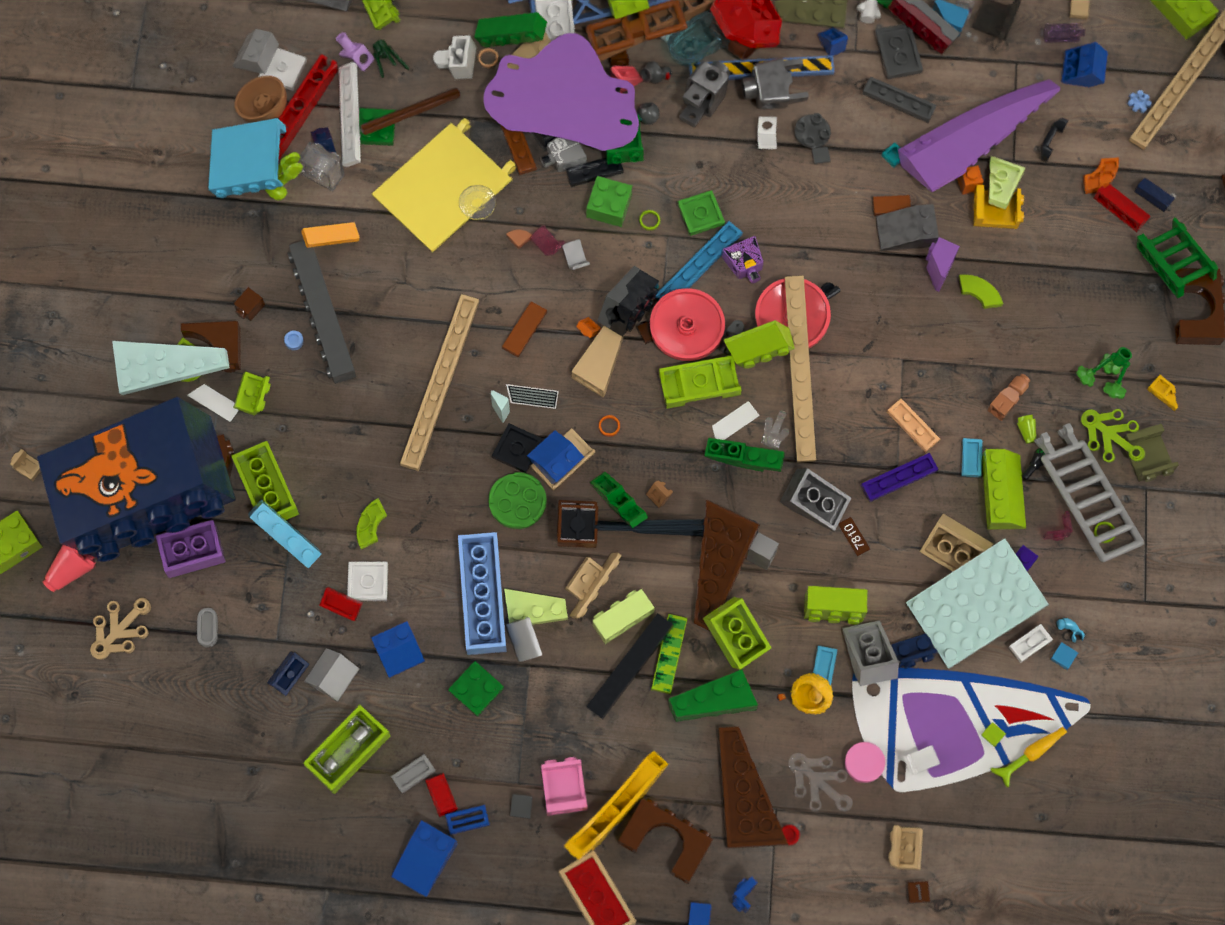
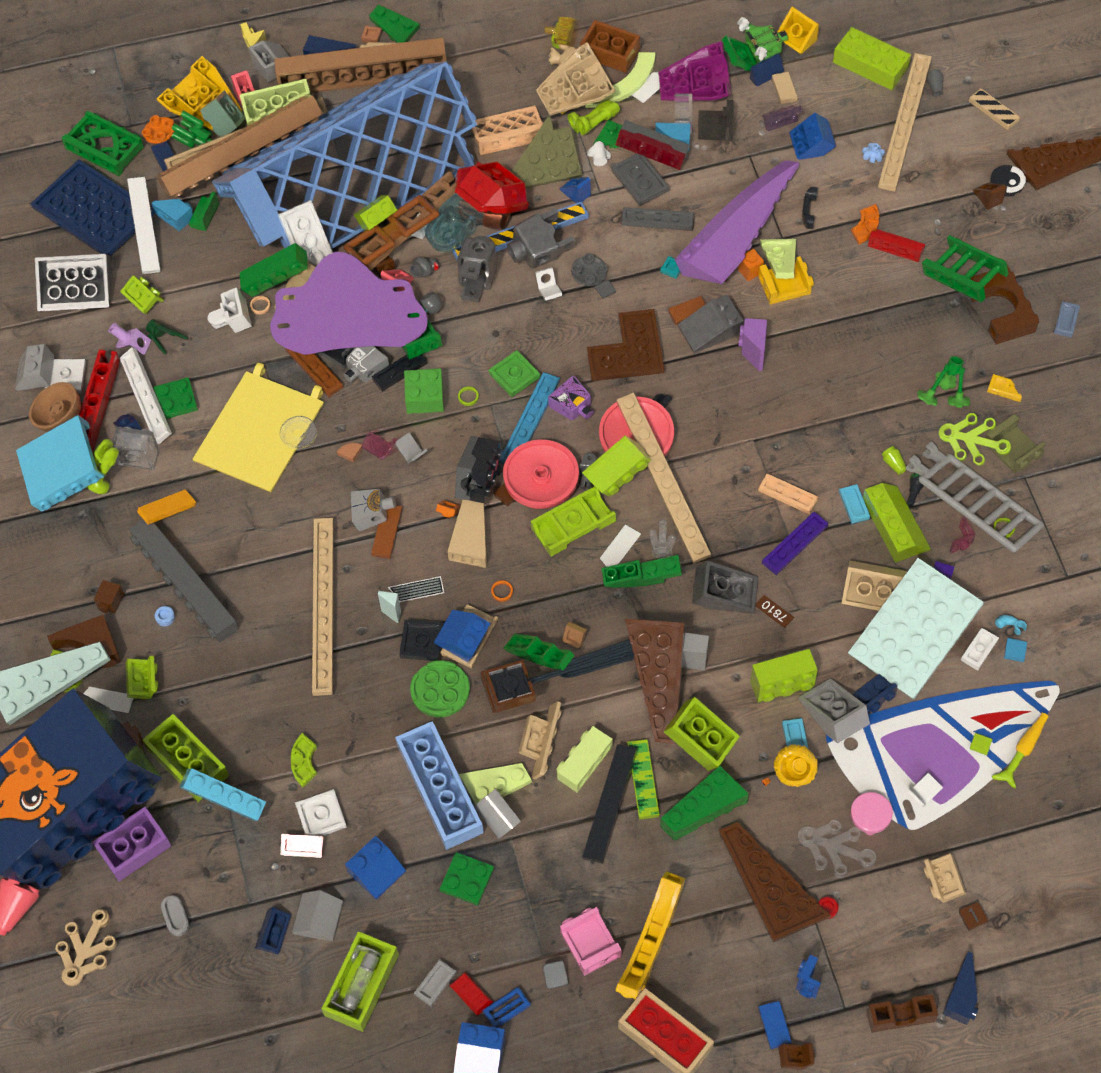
camera: 15 degrees left, 10 degrees down
(410, 111) = (203, 373): reddish brown axle -> none
(516, 302) = (370, 508): none -> light grey torso
(649, 817) = (686, 938): reddish brown arch -> none
(819, 236) = (635, 356): none -> reddish brown plate
(981, 290) = (801, 356): lime tile -> none
(1009, 397) = (865, 439): nougat piece -> none
(1154, 194) = (920, 225): dark blue slope -> none

